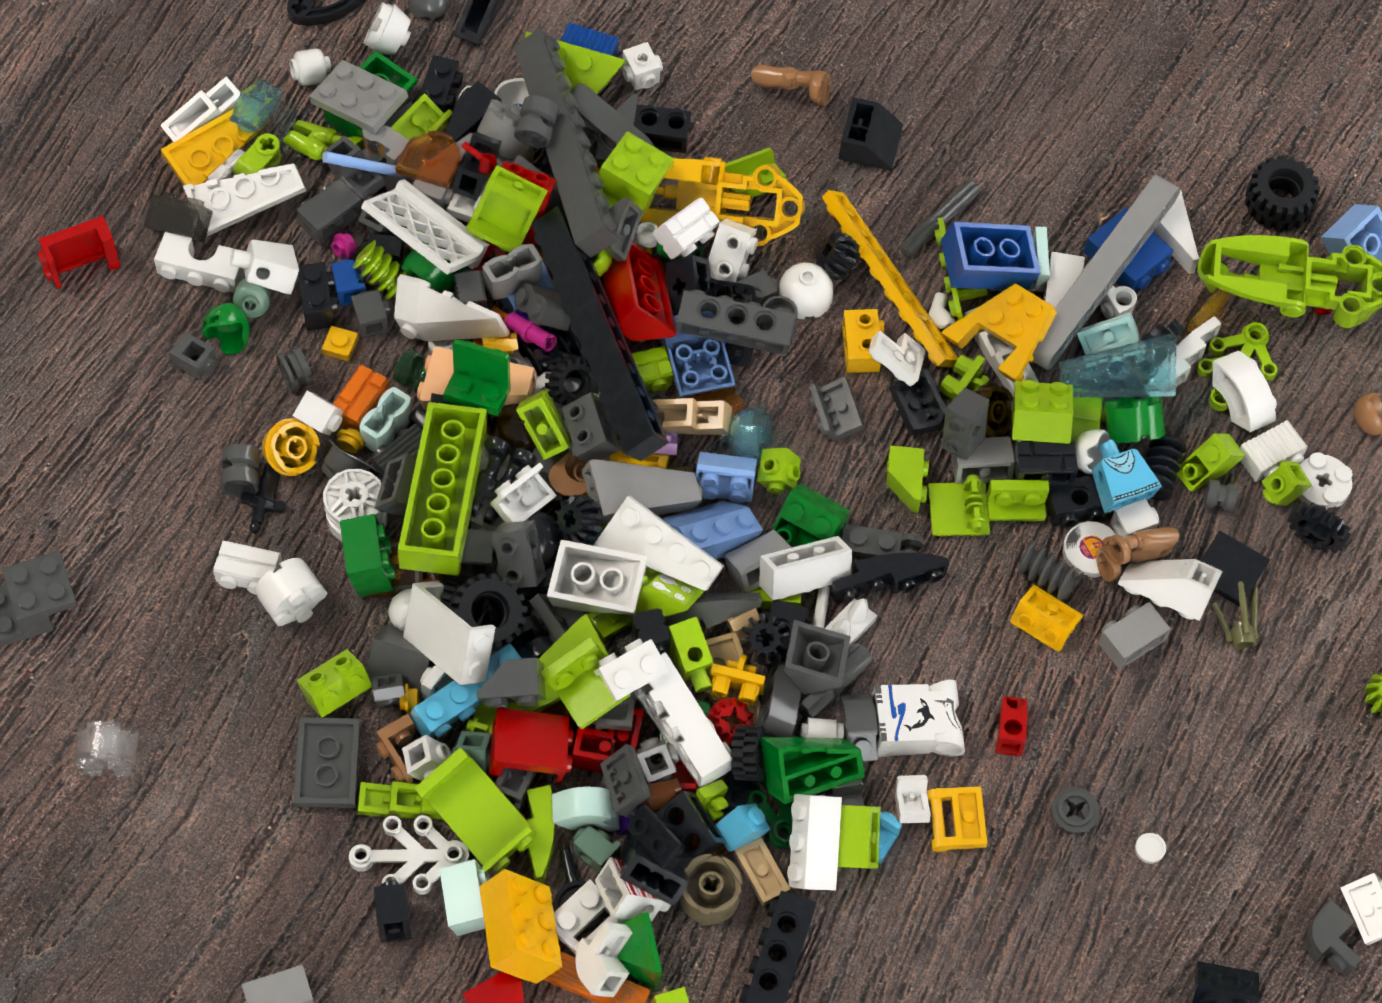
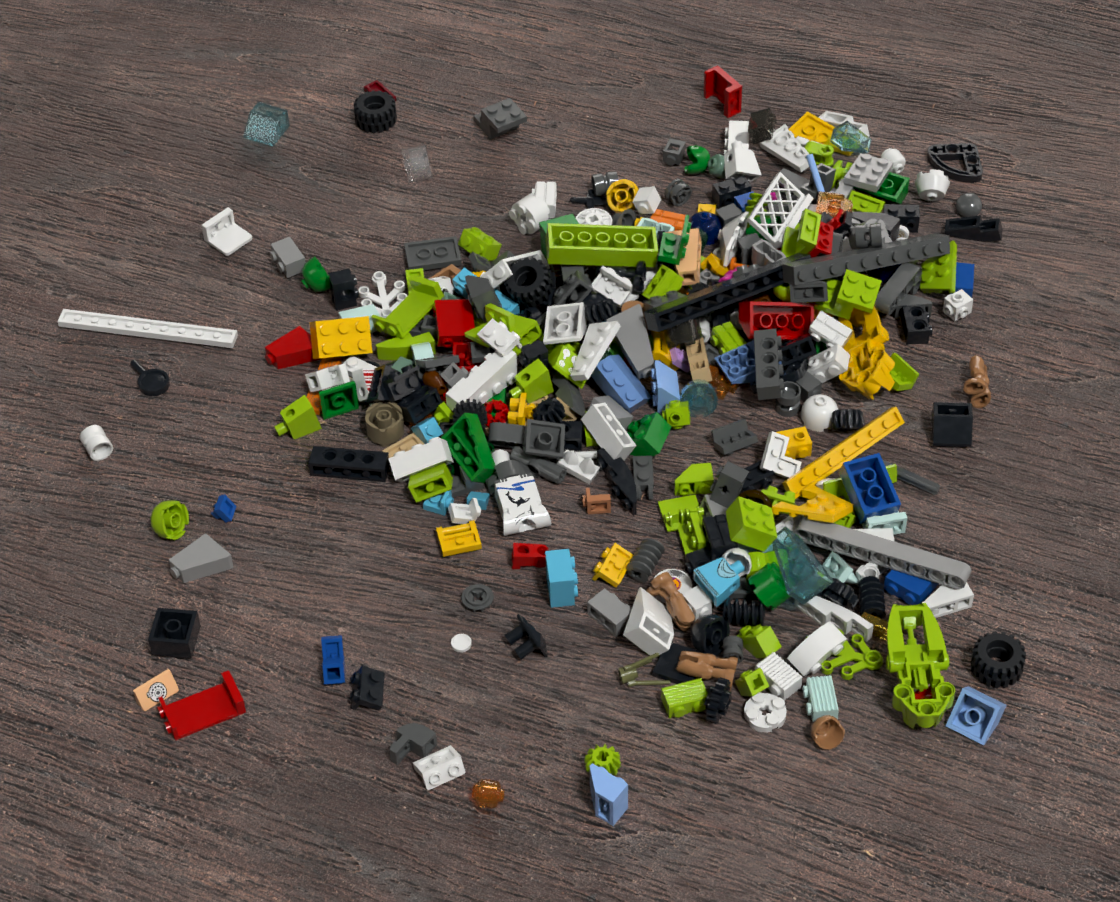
camera: 85 degrees right, 15 degrees down
(341, 955) = (315, 276): none -> green cylinder
(379, 349) = (707, 222): none -> clear blue cylinder
(882, 779) = (482, 498): none -> medium azure slope
(924, 622) = (596, 503): none -> nougat bracket
(1075, 685) = (561, 578): none -> medium azure brick
(1163, 308) = (871, 597): none -> black piece
(1175, 742) = (535, 640): none -> black connector
(1195, 518) = (708, 634): none -> black cylinder
(1250, 537) = (702, 666): none -> medium nougat piece
(1295, 571) = (684, 698): none -> lime brick
(1316, 409) = (820, 697): none -> light aqua brick

